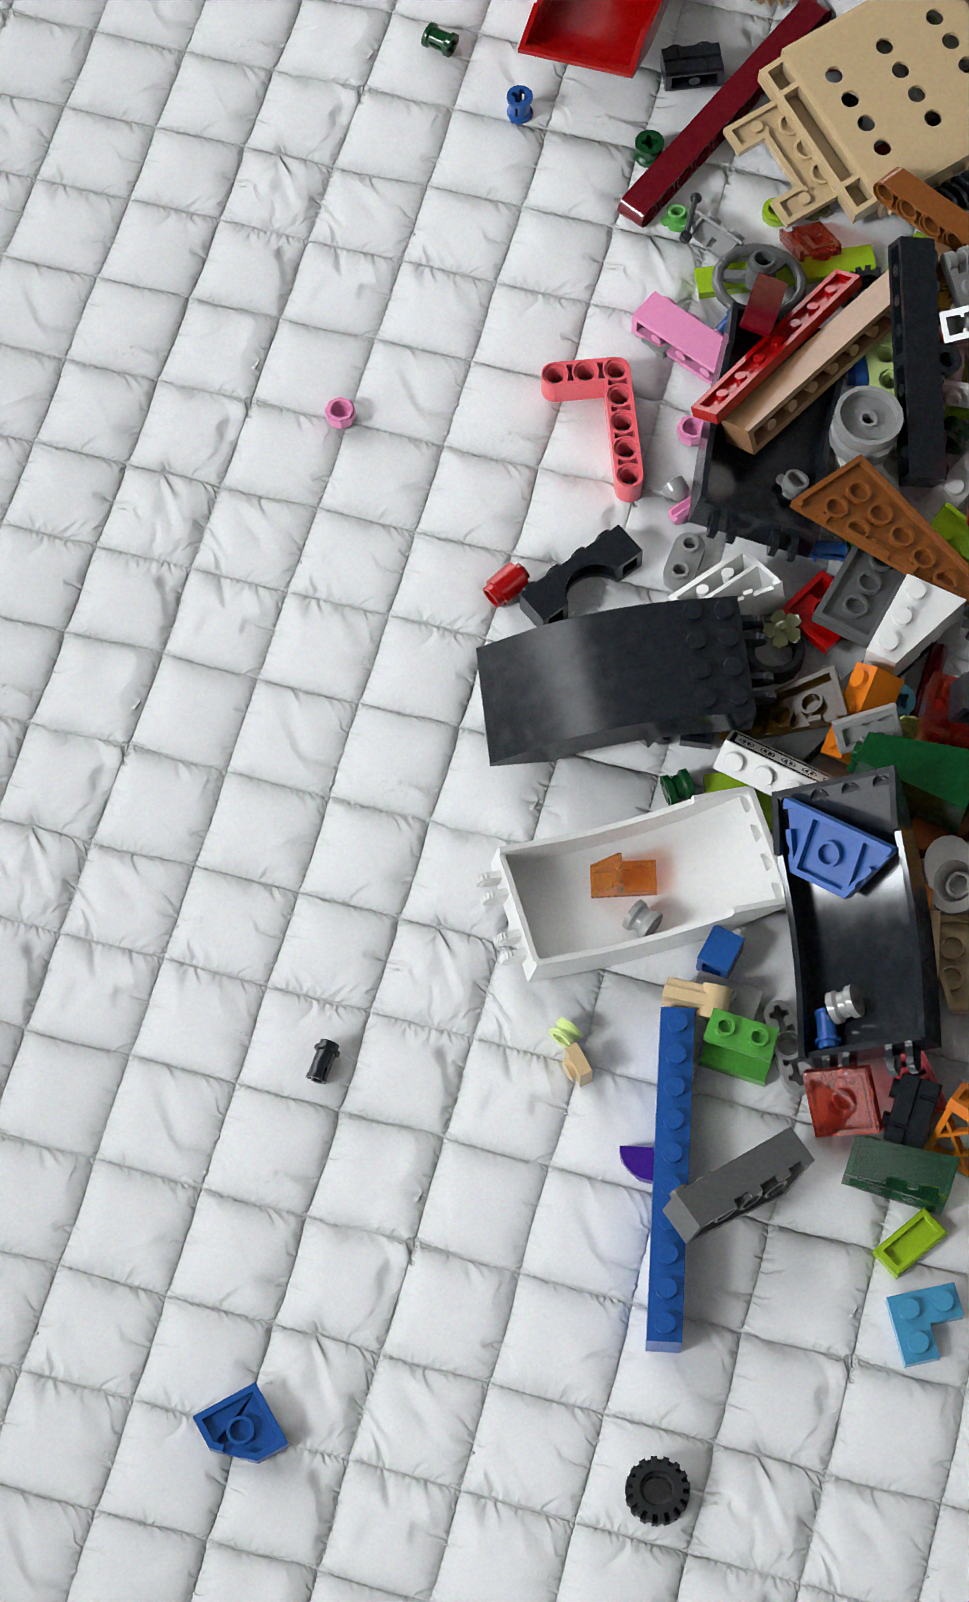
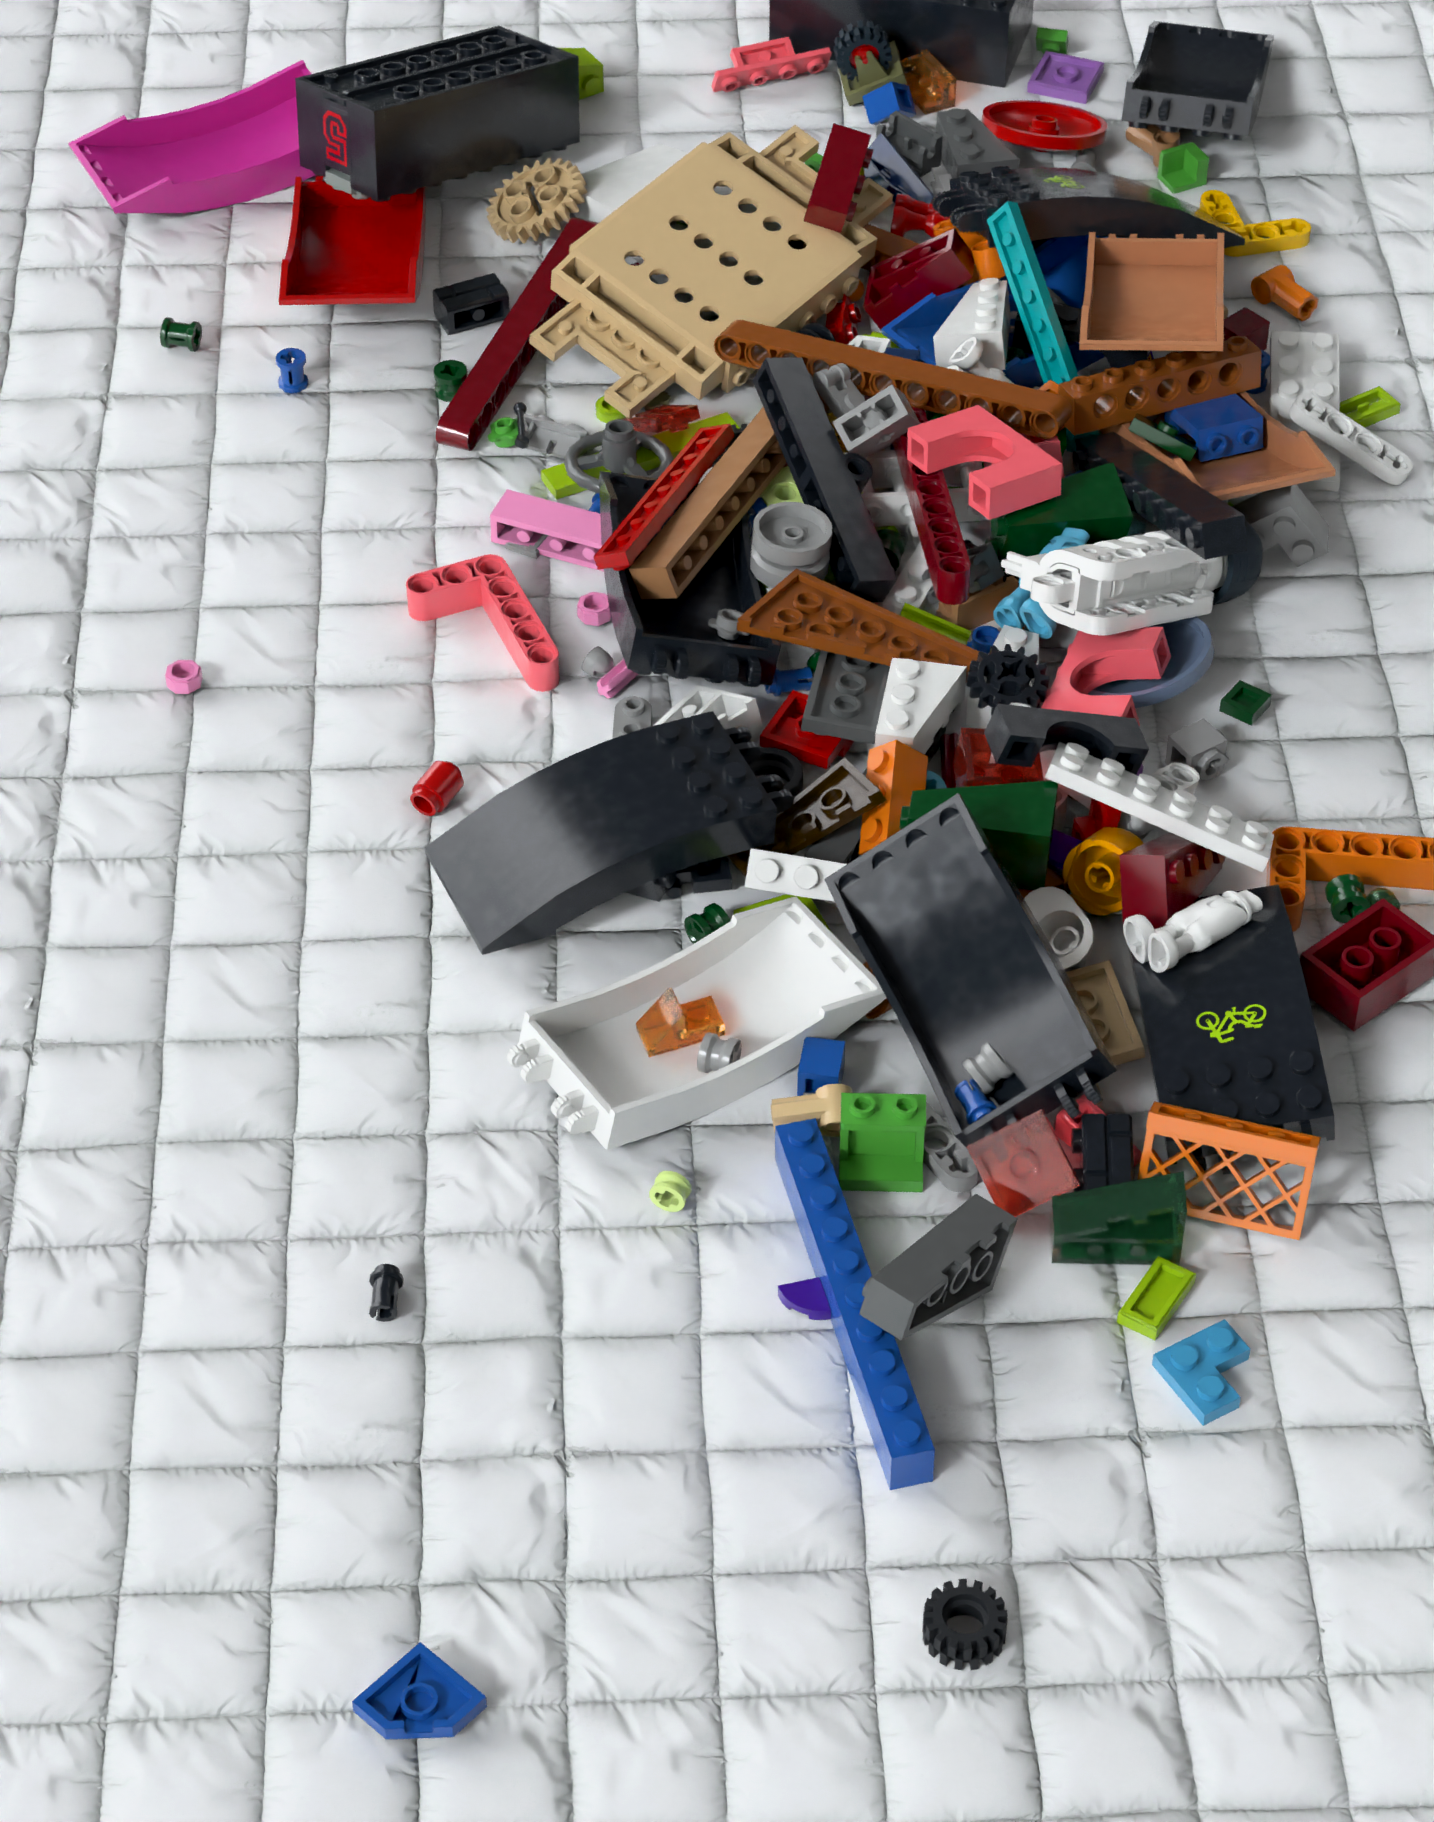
camera: 20 degrees left, 20 degrees down
(576, 1065) = (697, 1217): tan plate -> none
(609, 556) = (544, 737): black arch -> none
(763, 305) = (636, 462): dark red beam -> none
(783, 629) = (774, 750): olive plant -> none
(832, 851) = (917, 909): wing -> none
(856, 726) = (887, 806): light grey plate -> none

